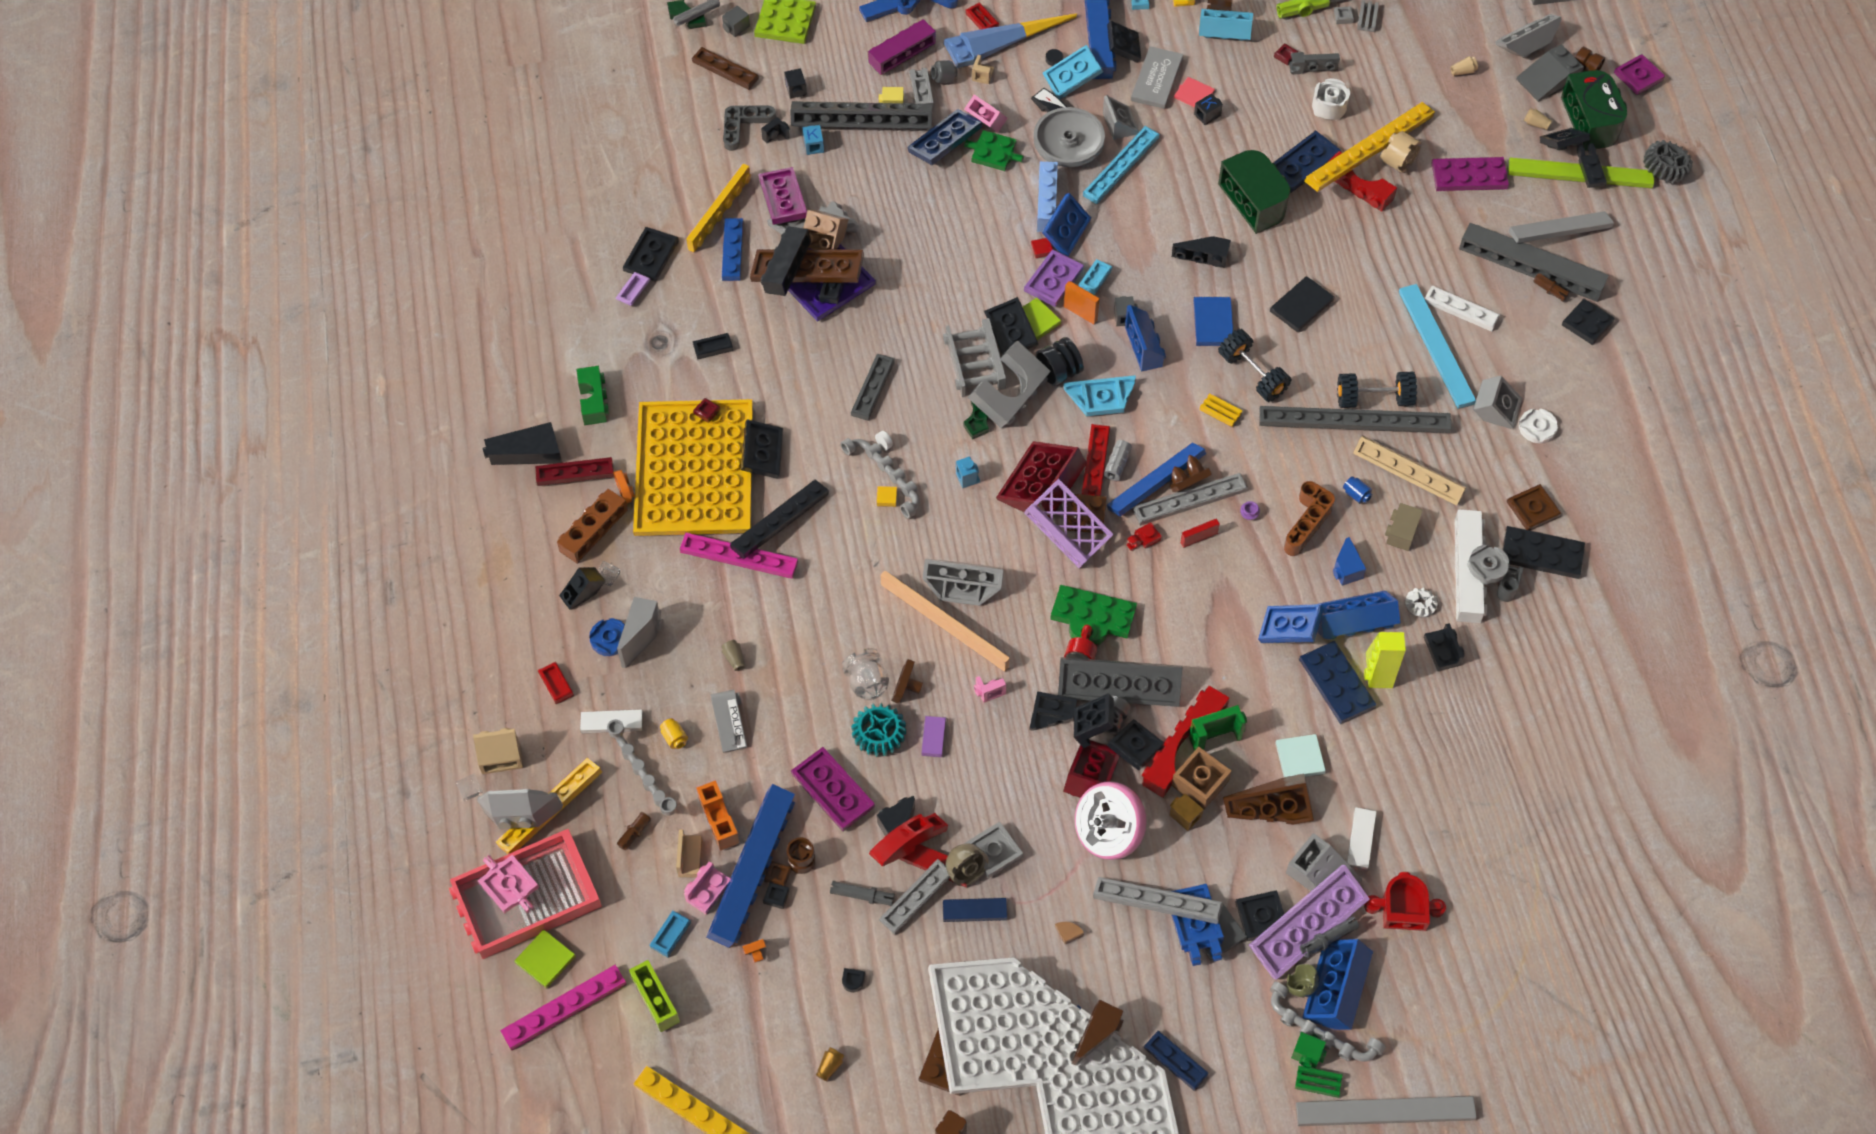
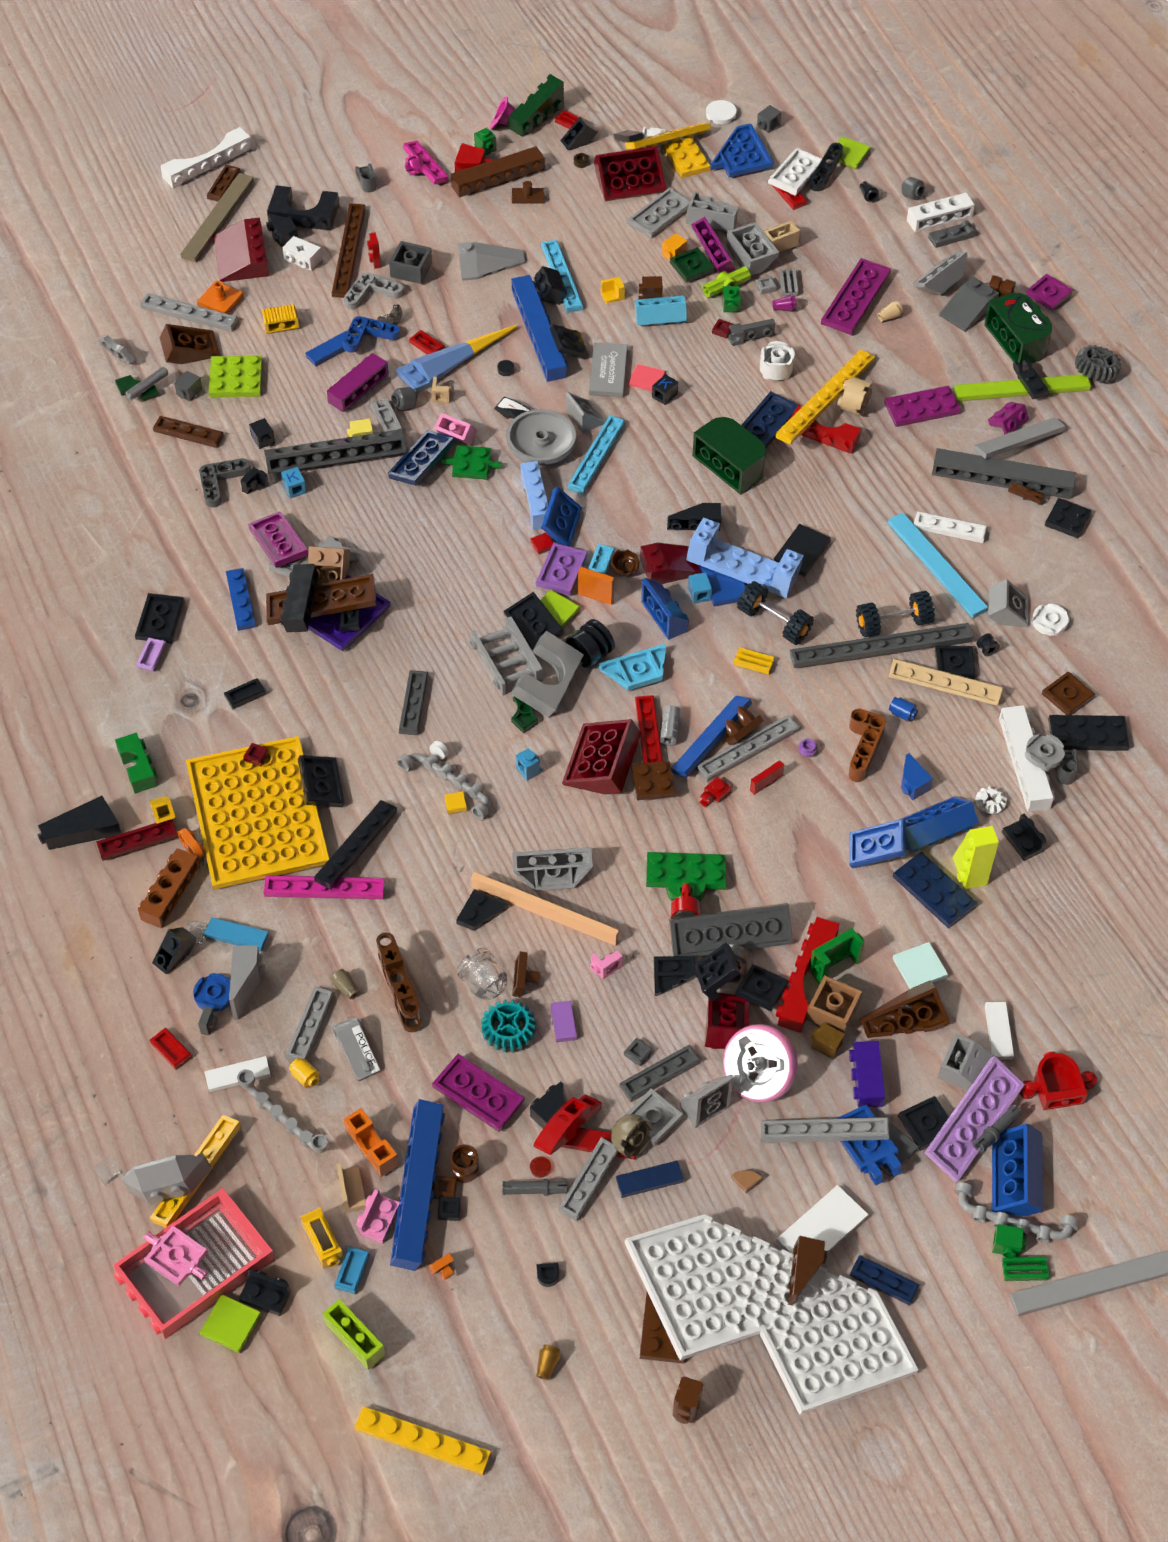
camera: 15 degrees left, 5 degrees down
(498, 751) = (130, 1126): tan slope -> none
(563, 1007) = (261, 1368): dark pink plate -> none
(584, 936) = (265, 1292): none -> black bracket
(595, 663) = (207, 1020): none -> dark grey plate
(604, 447) = (162, 809): none -> yellow brick
(633, 831) = (288, 1176): reddish brown axle -> none
(644, 584) = (235, 933): none -> dark azure tile
(654, 916) = (329, 1257): none -> yellow window
(691, 687) = (310, 1024): none -> light grey tile
(717, 209) = (216, 563): yellow plate -> none
(783, 673) = (397, 979): none -> reddish brown piece
(873, 874) = (540, 1167): none -> clear red piece
(882, 608) = (479, 909): none -> black wing
(997, 782) = (638, 1052): none -> dark grey tile
(1013, 808) = (660, 1073): none -> dark grey tile
(1050, 846) = (708, 1100): none -> light grey slope
(1054, 532) = (631, 805): lavender fence -> none
(1072, 72) = (528, 377): medium azure tile -> none
(1118, 283) = (625, 562): none -> reddish brown hair
(1120, 308) = (634, 585): dark grey brick -> none
(1134, 990) = (826, 1221): none -> white tile
(1163, 292) = (667, 562): none -> dark red slope
(1186, 324) = (699, 588): none -> dark azure brick
(1215, 853) = (867, 1074): none -> dark purple brick
(1234, 306) = (741, 564): none -> light blue plate
(1302, 24) = (731, 299): none -> green brick
(1303, 981) = (984, 1175): olive hair -> none
(1357, 39) = (786, 303): none -> magenta cone
(1404, 526) = (955, 734): dark tan brick -> none
(1427, 450) = (956, 660): none -> black tile
(1433, 43) = (855, 296): none -> magenta plate
(1464, 440) = (987, 644): none -> black wheel
(1537, 119) = (967, 346): tan cone -> none
(1558, 202) = (1009, 417): none -> magenta bracket
(1565, 138) = (1000, 359): black plate -> none

